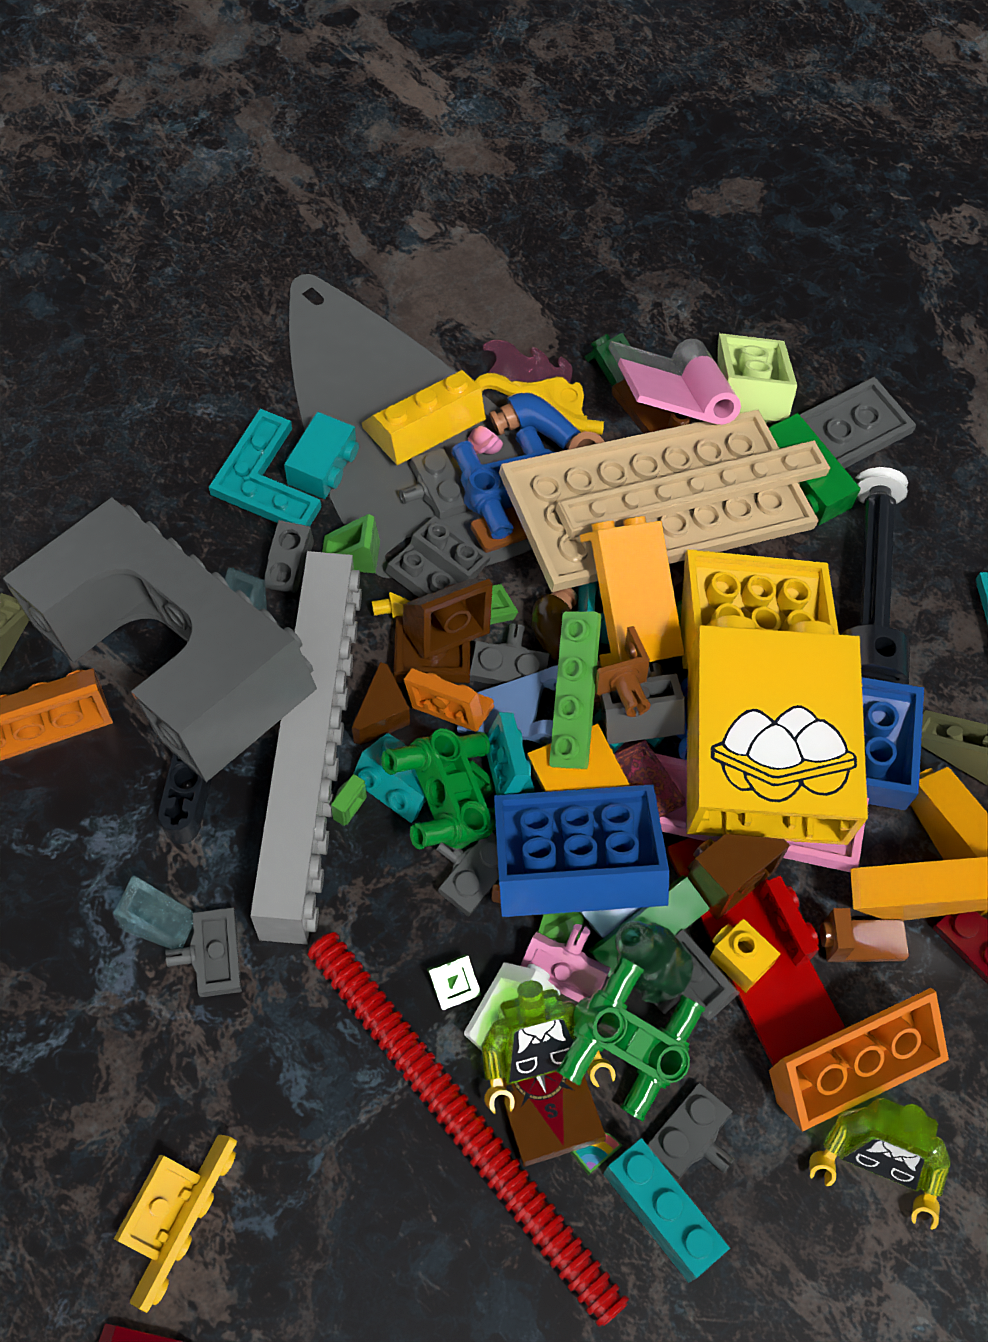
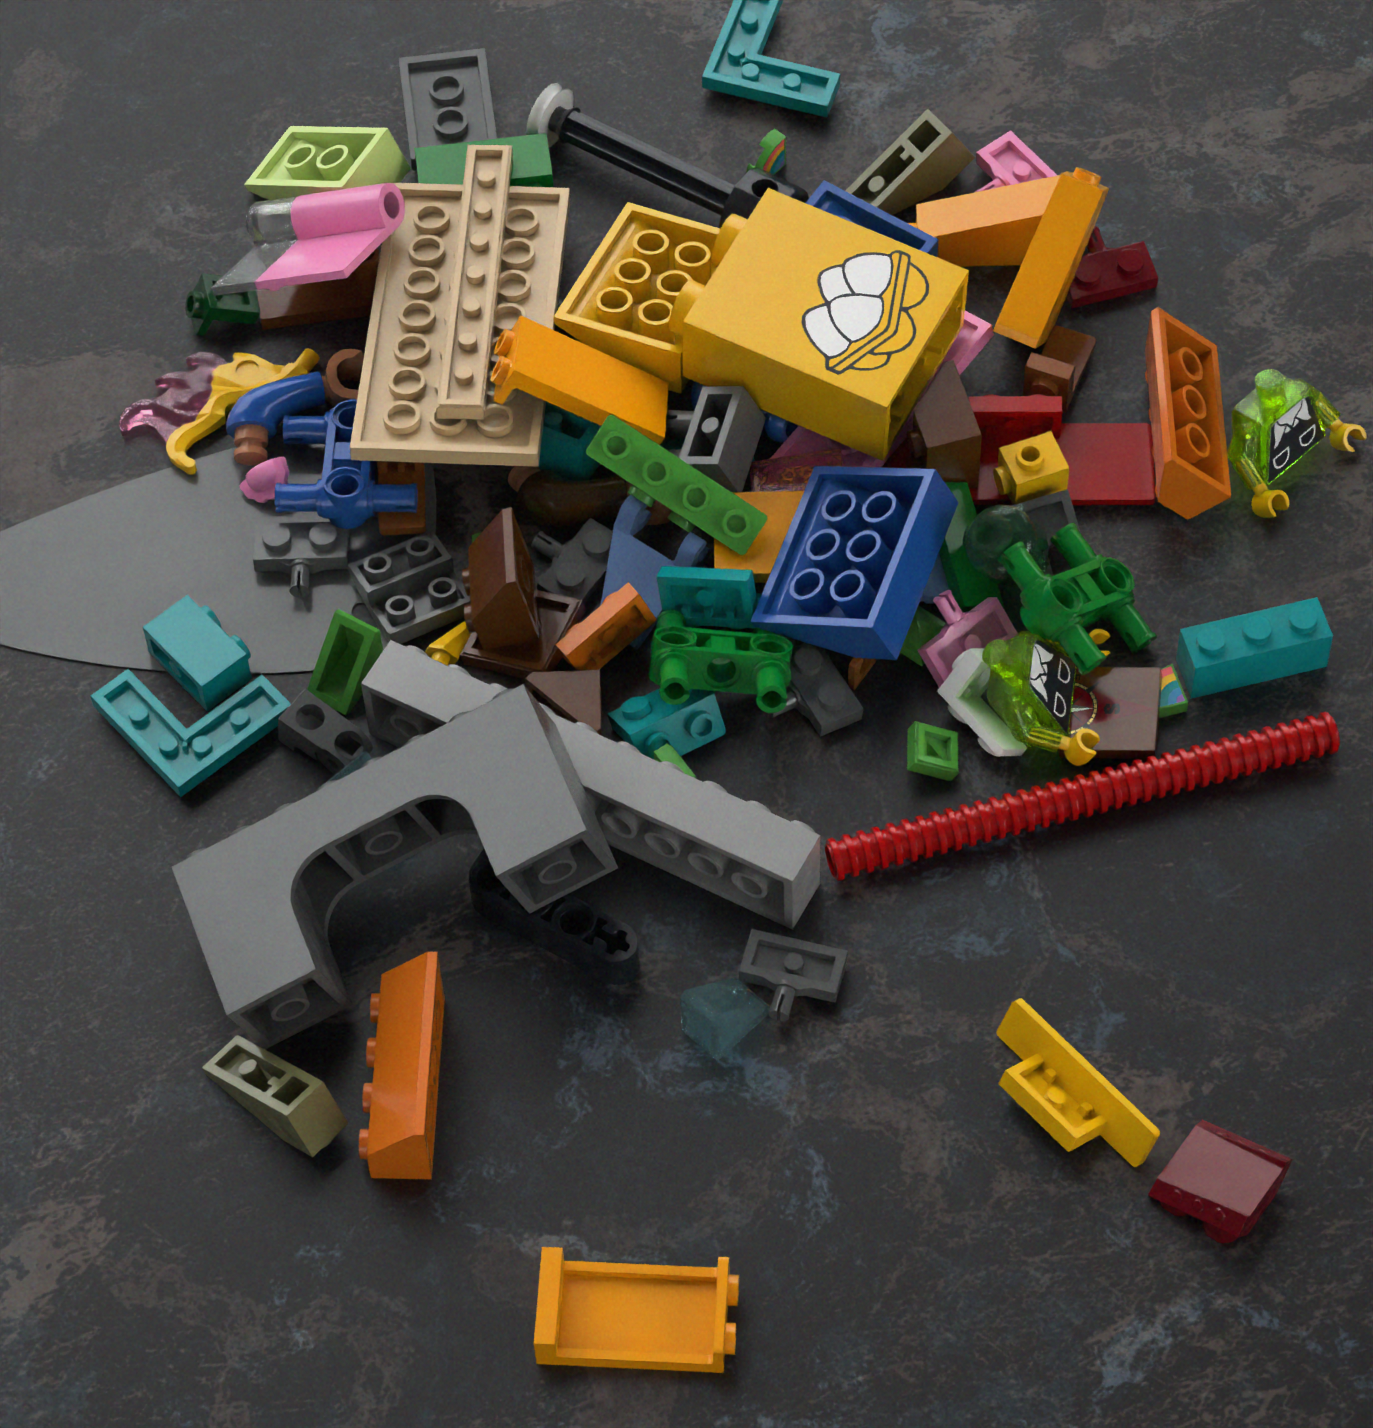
camera: 60 degrees left, 5 degrees down
(427, 417) = (202, 521): yellow slope -> none
(627, 676) = (694, 427): dark orange bracket -> none
(692, 1134) = (1182, 595): dark grey plate -> none
(934, 649) = (774, 153): none -> bright green tile

